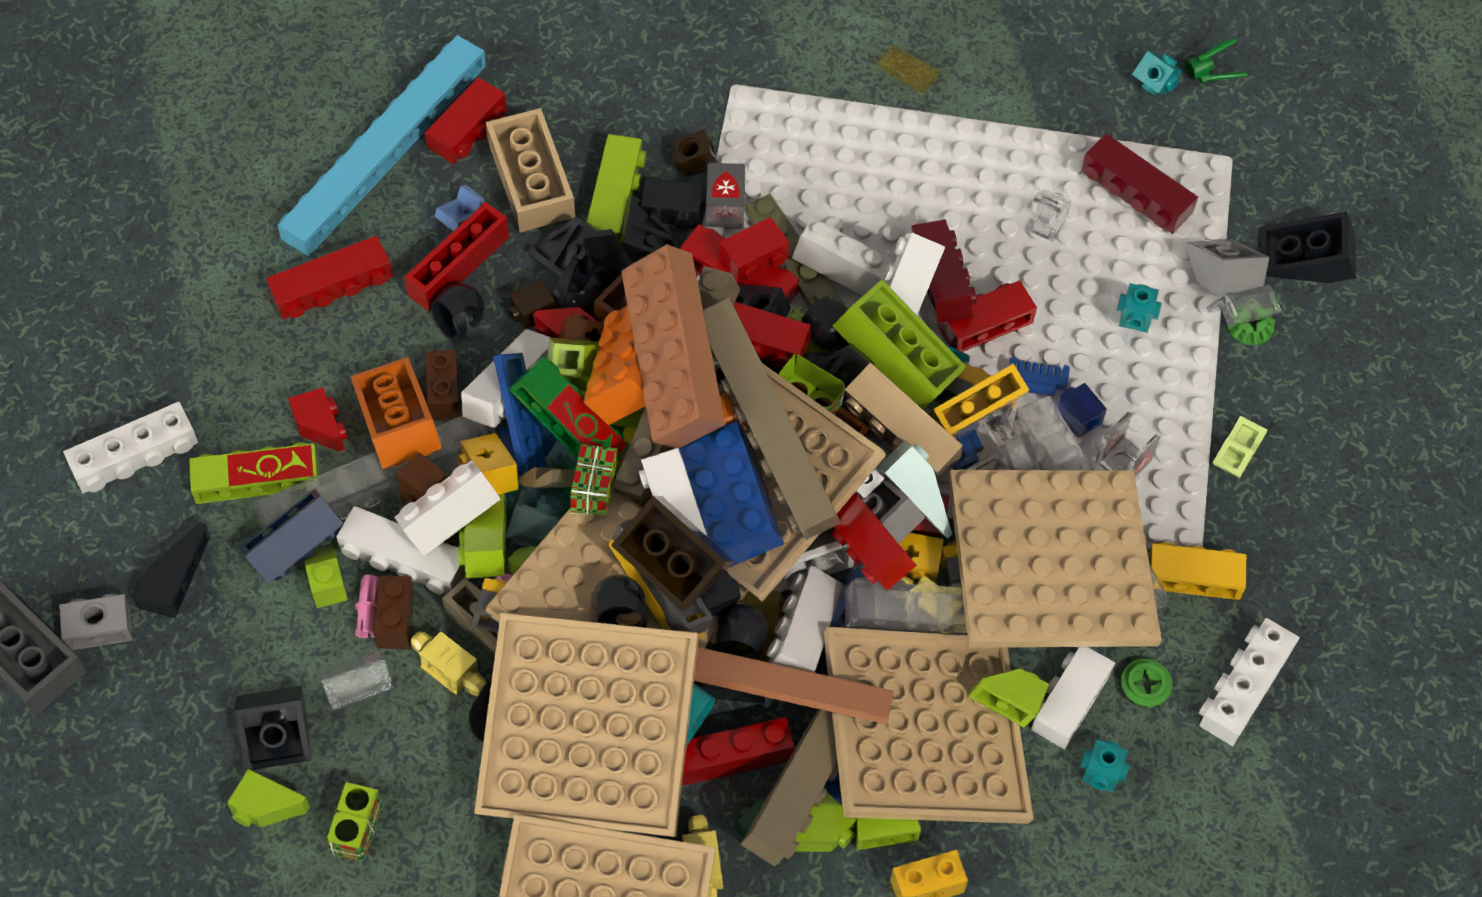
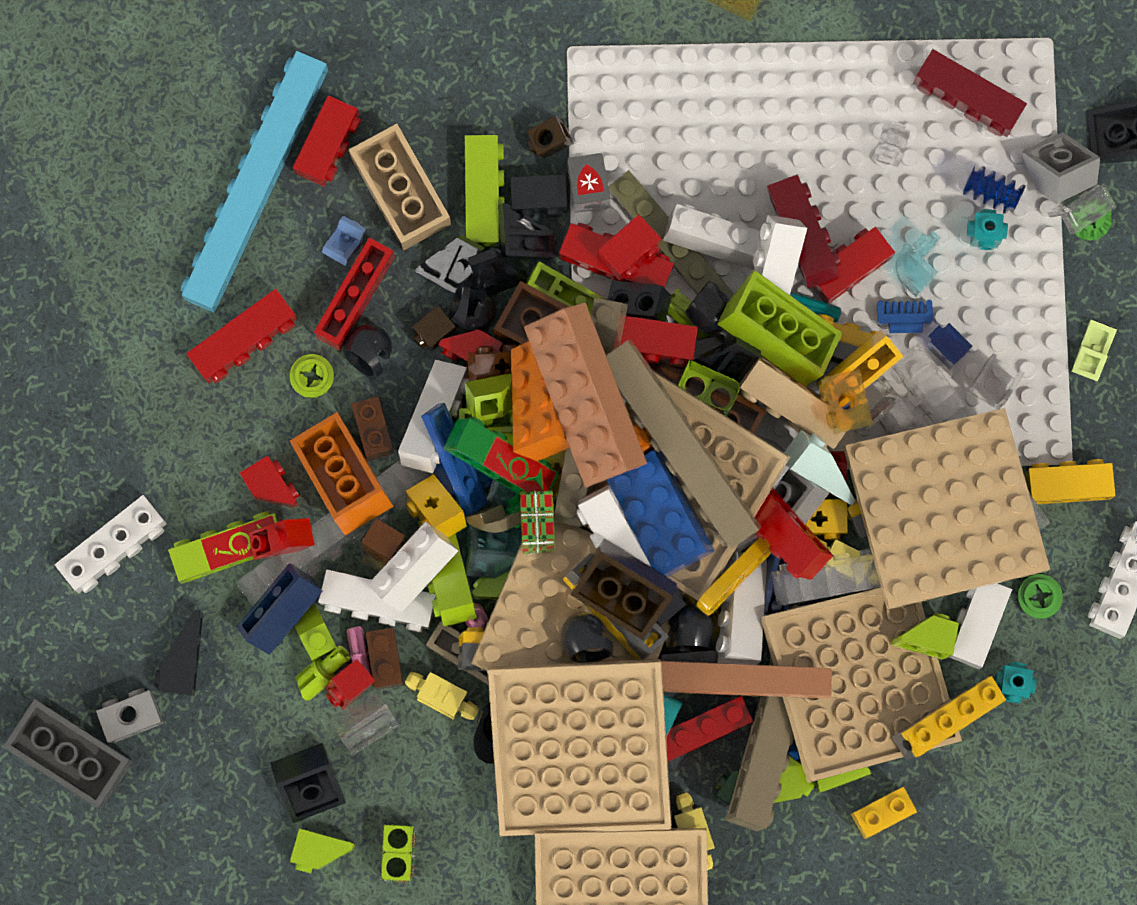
camera: 10 degrees left, 20 degrees up
(314, 462) = (281, 538): none -> red slope
(319, 612) = (320, 672): none -> lime arm
(346, 627) = (348, 685): none -> red slope
(389, 318) = (305, 365): none -> lime gear
(803, 579) = (734, 576): none -> yellow beam
(964, 402) = (851, 386): none -> clear yellow brick
(1021, 783) = (948, 718): none -> yellow piece
(1055, 327) = (911, 266): none -> clear light blue brick
(1150, 271) = (993, 189): none -> clear blue piece

